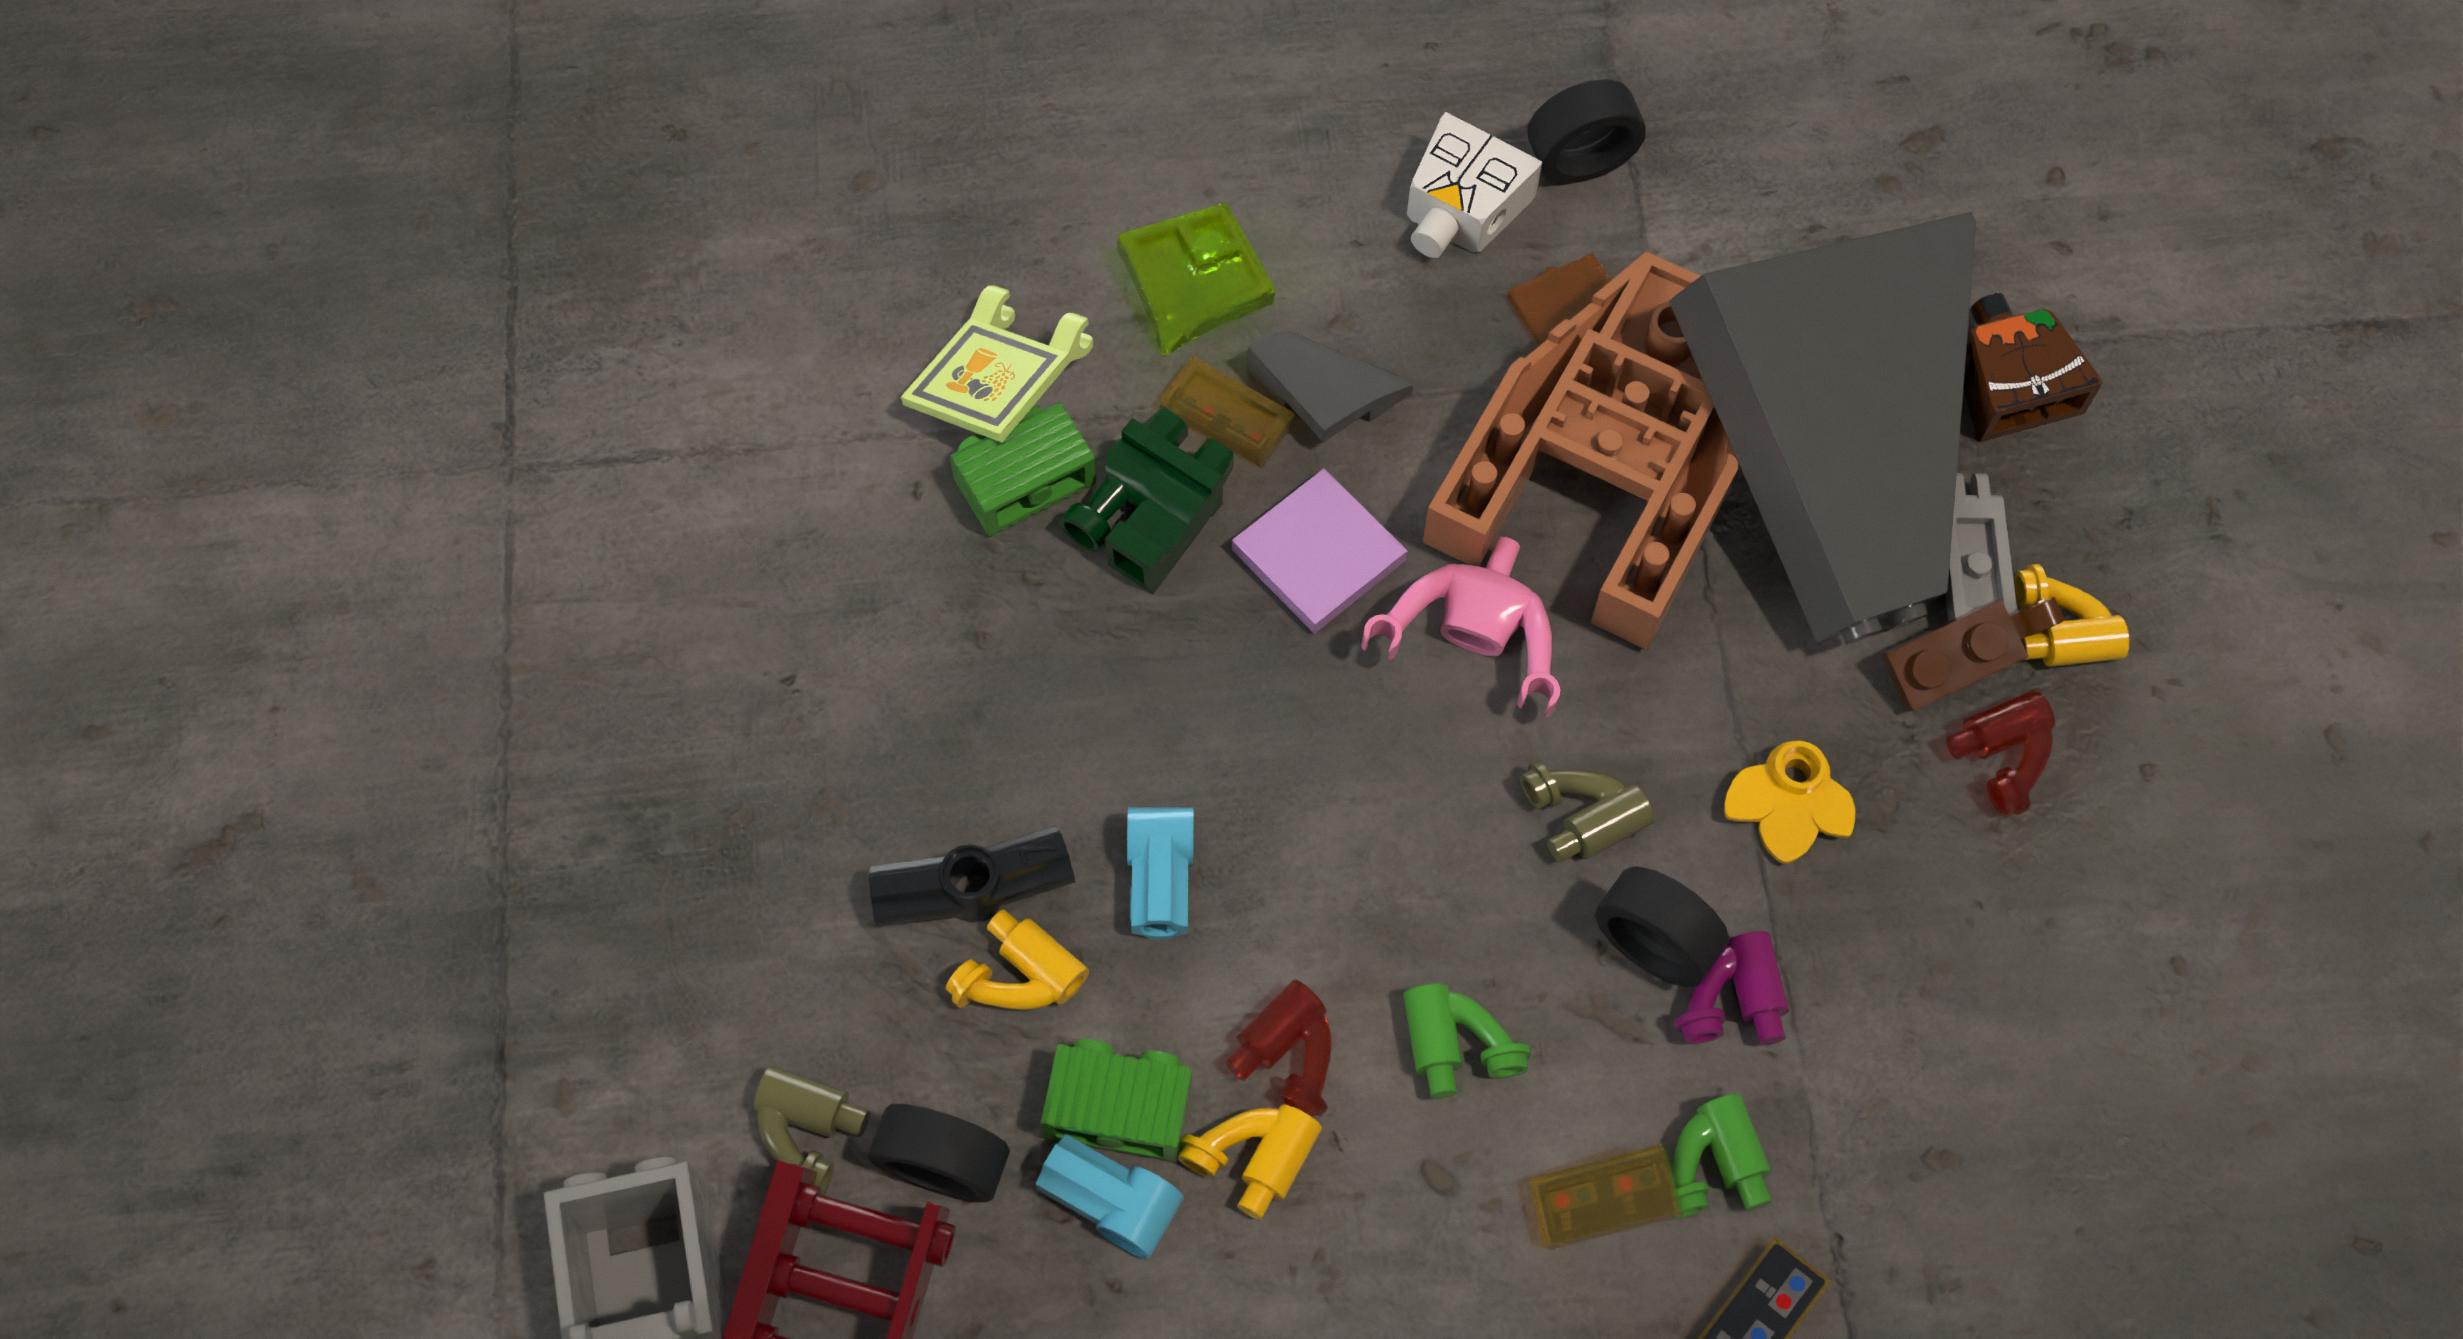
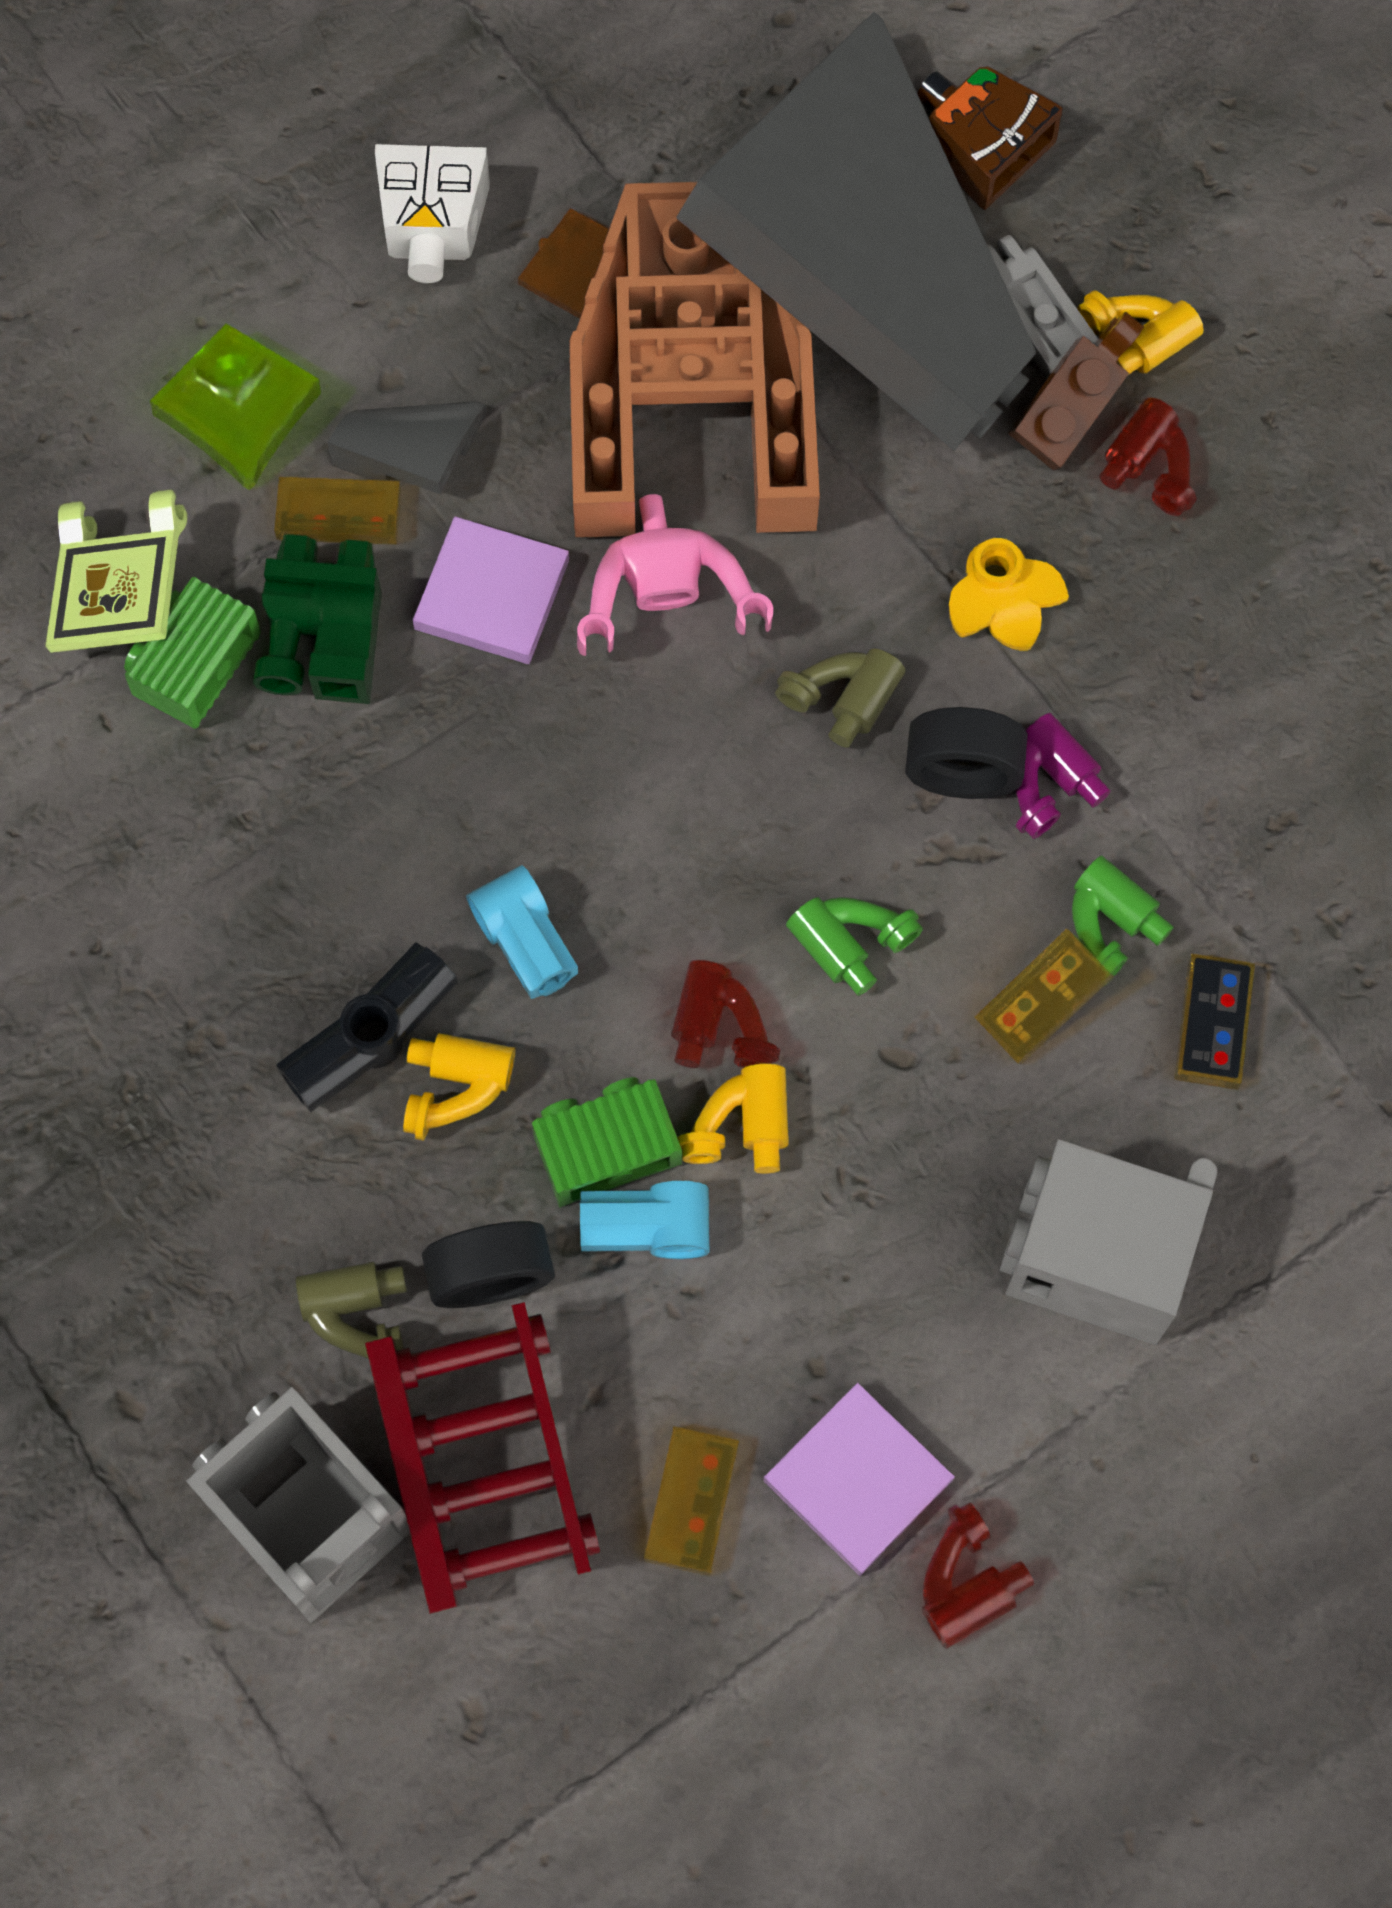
camera: 30 degrees left, 5 degrees up
(1594, 106) = (507, 101): black tyre -> none

